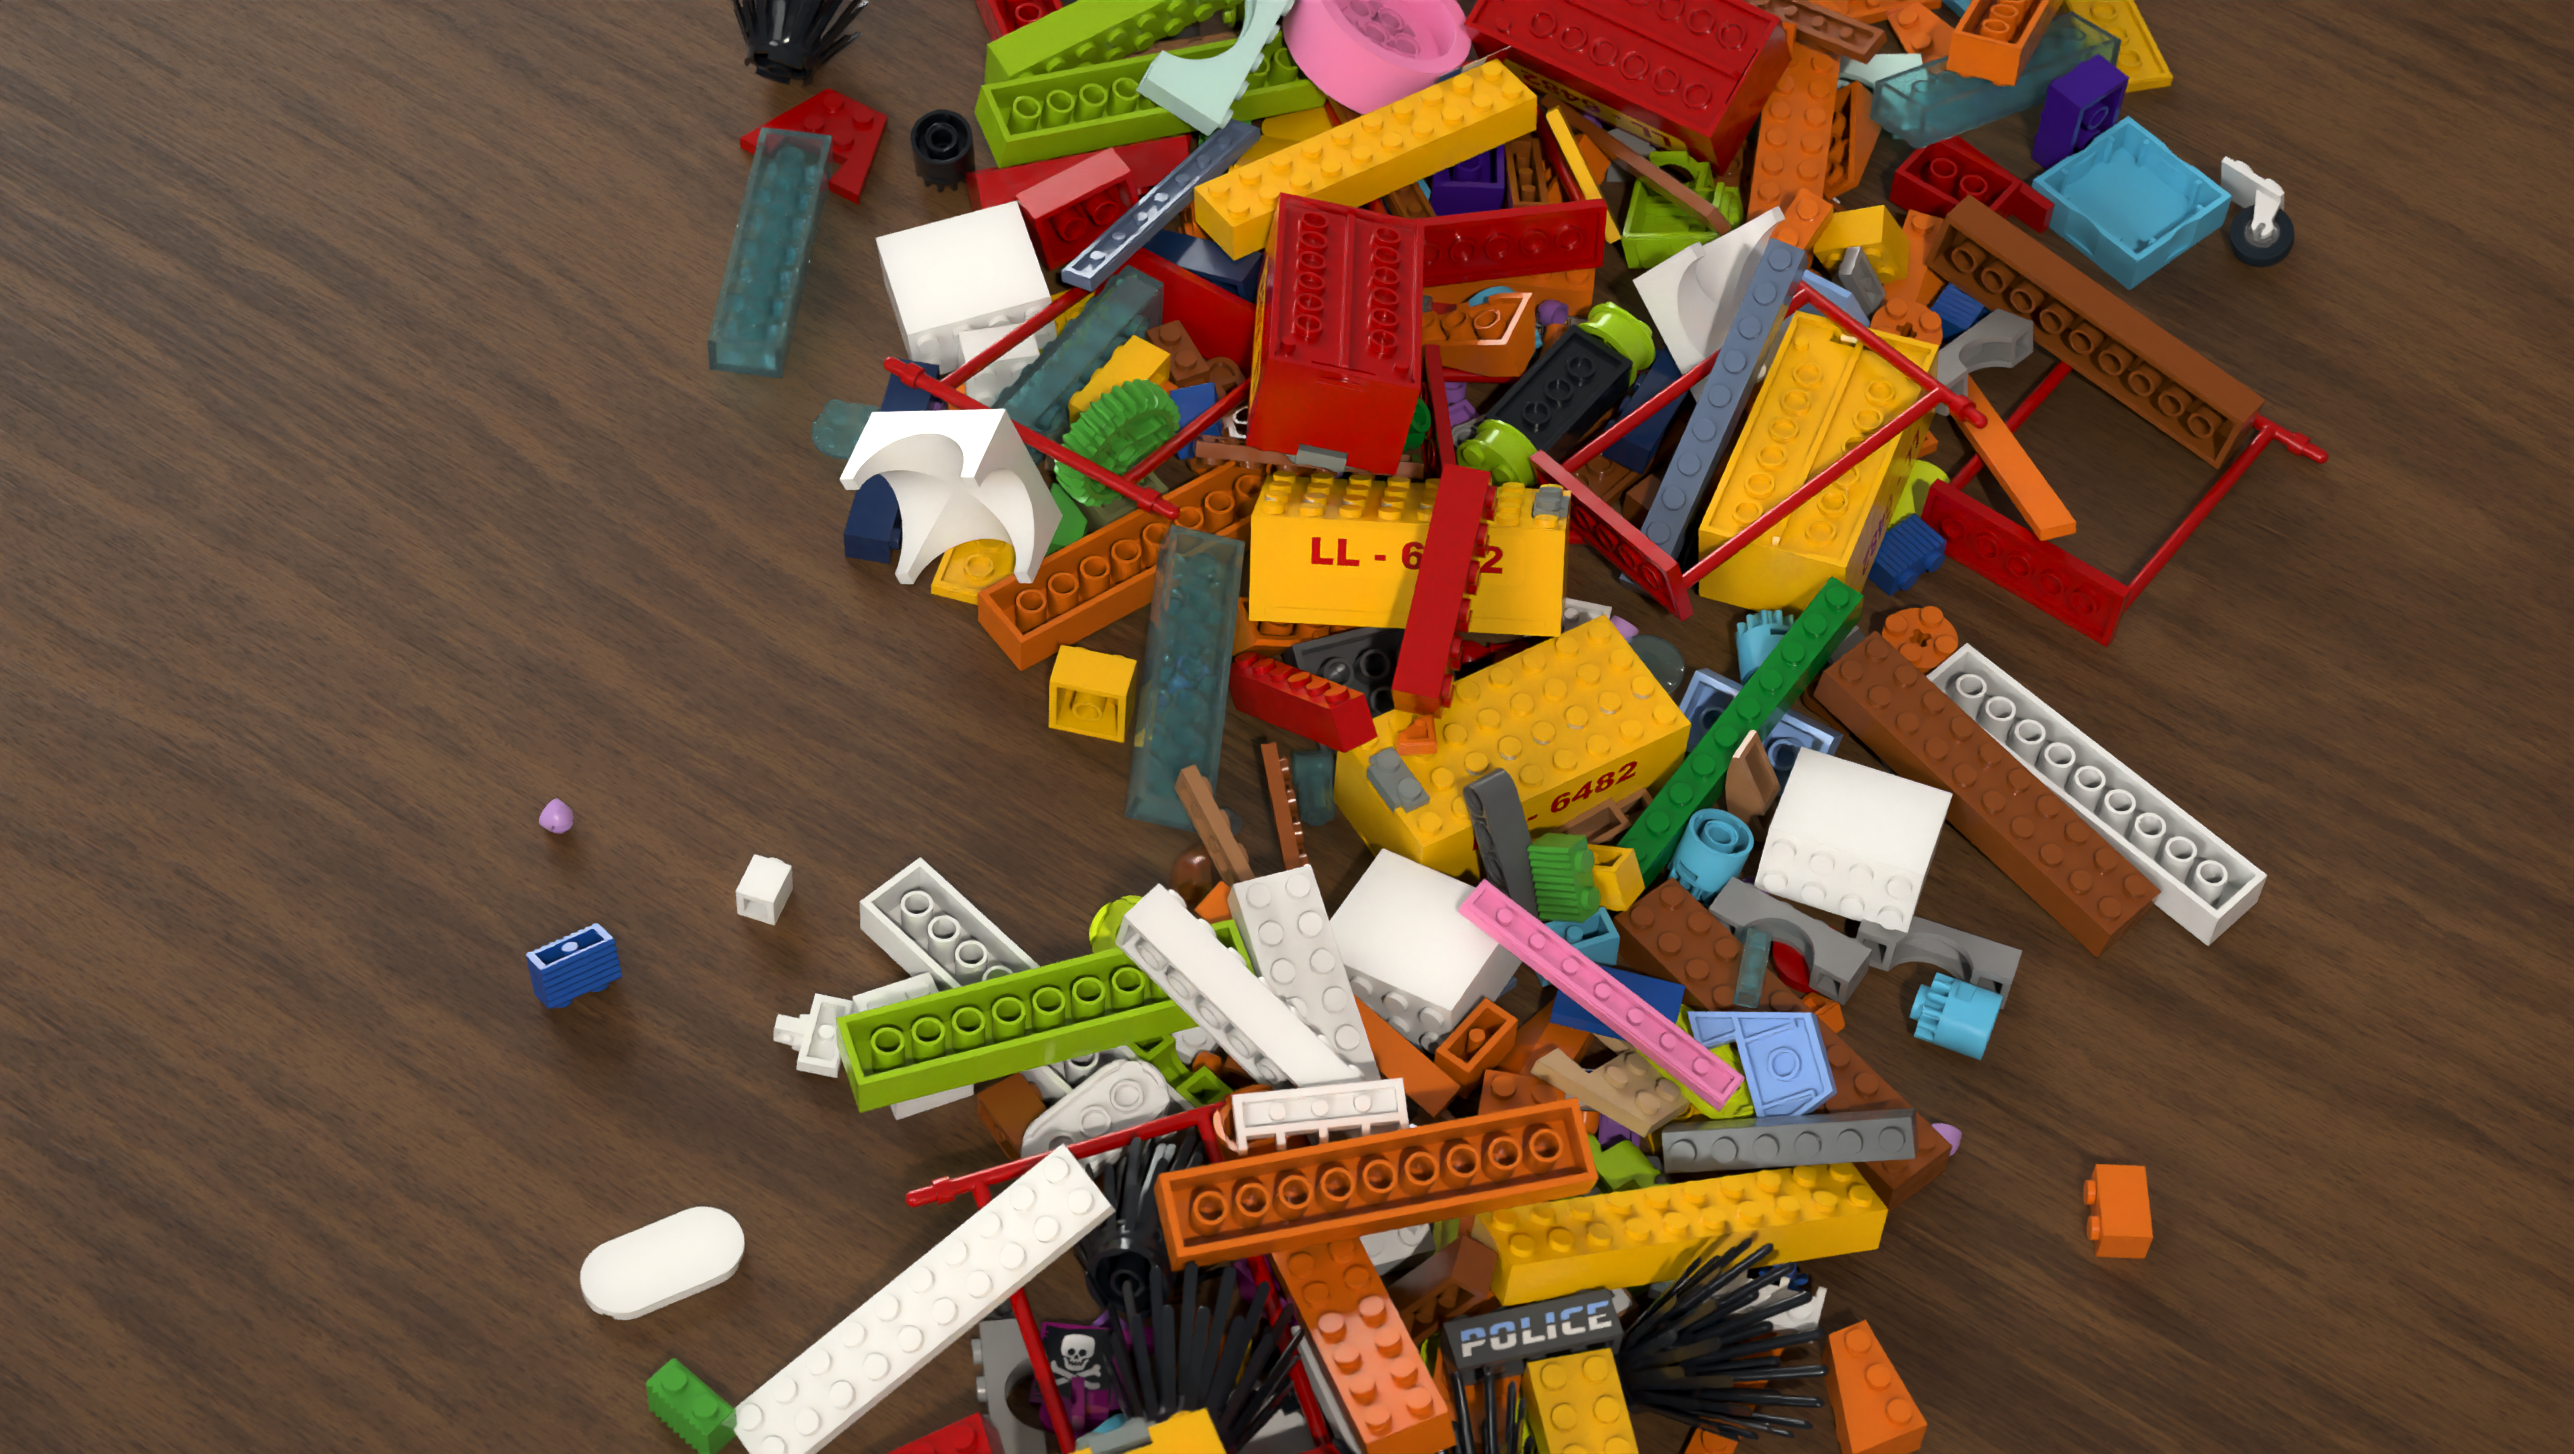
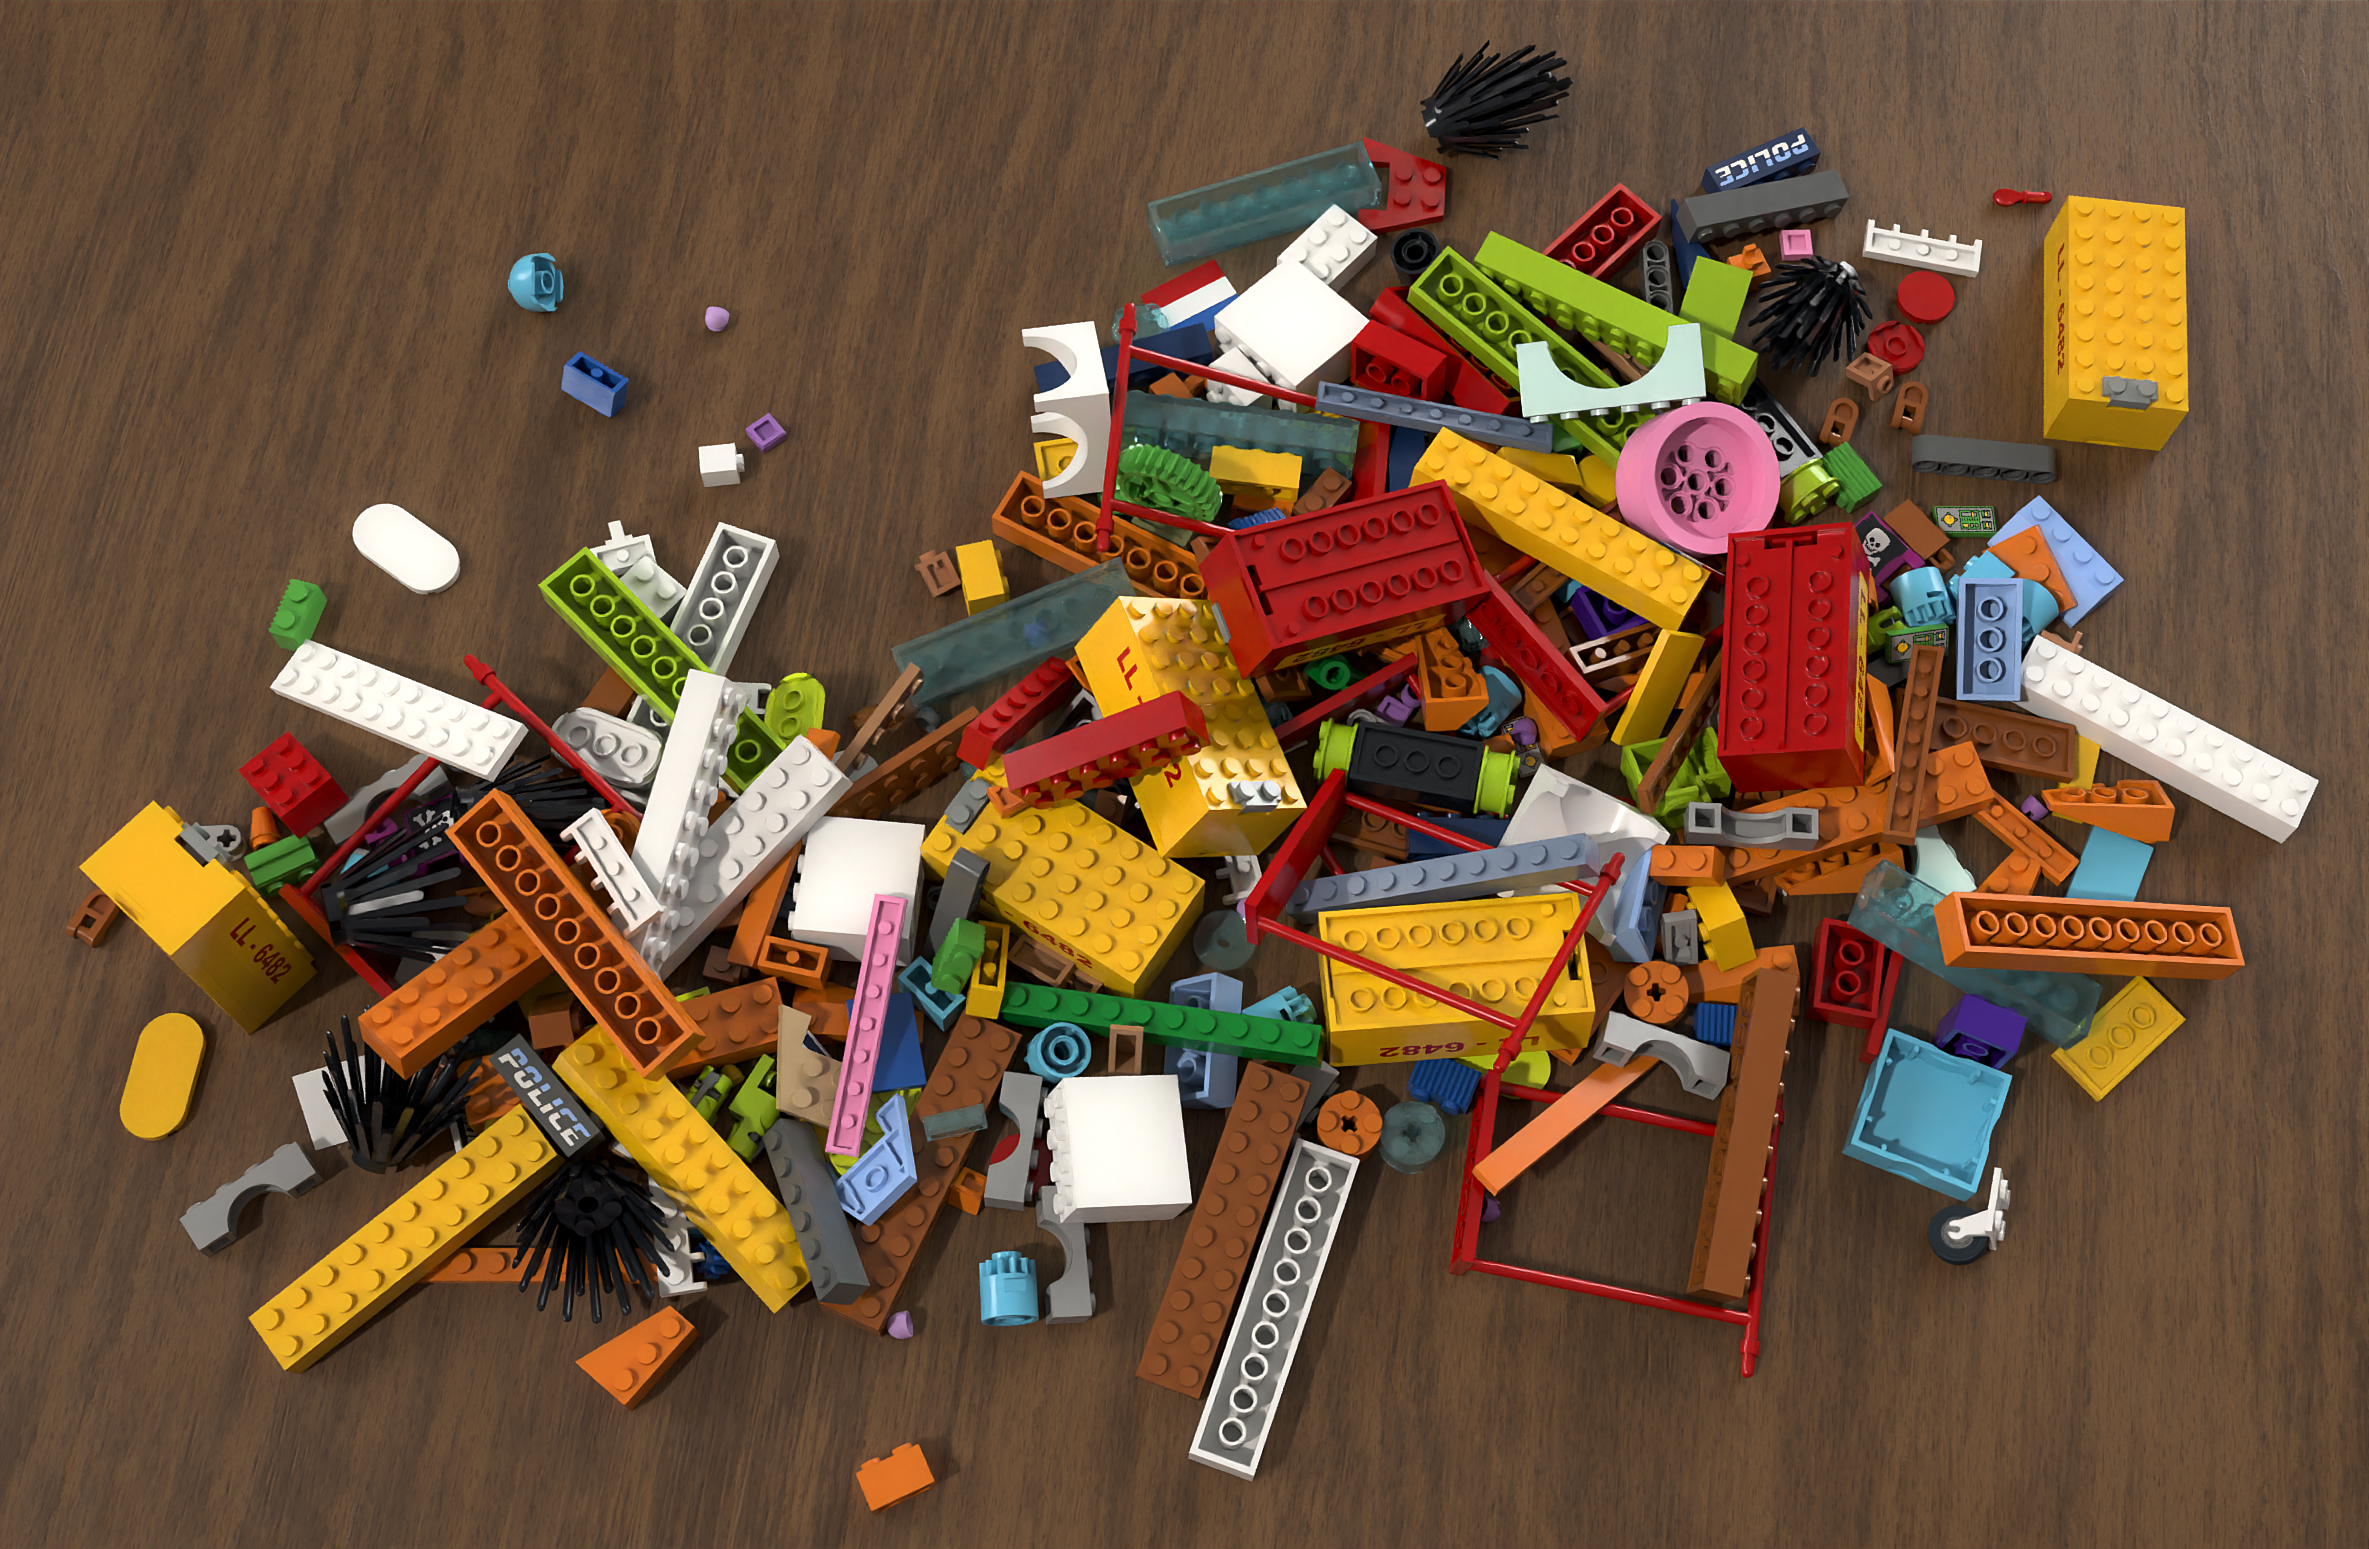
camera: 65 degrees right, 15 degrees up
(380, 977) = (536, 283): none -> medium azure cylinder
(745, 833) = (766, 433): none -> medium lavender tile
(840, 368) = (1193, 296): none -> sticker
(857, 215) = (1333, 248): none -> white brick
(1041, 736) = (937, 572): none -> nougat bracket
(1801, 145) = (1719, 826): none -> light grey arch
(1961, 595) = (1396, 1147): none -> clear light blue brick

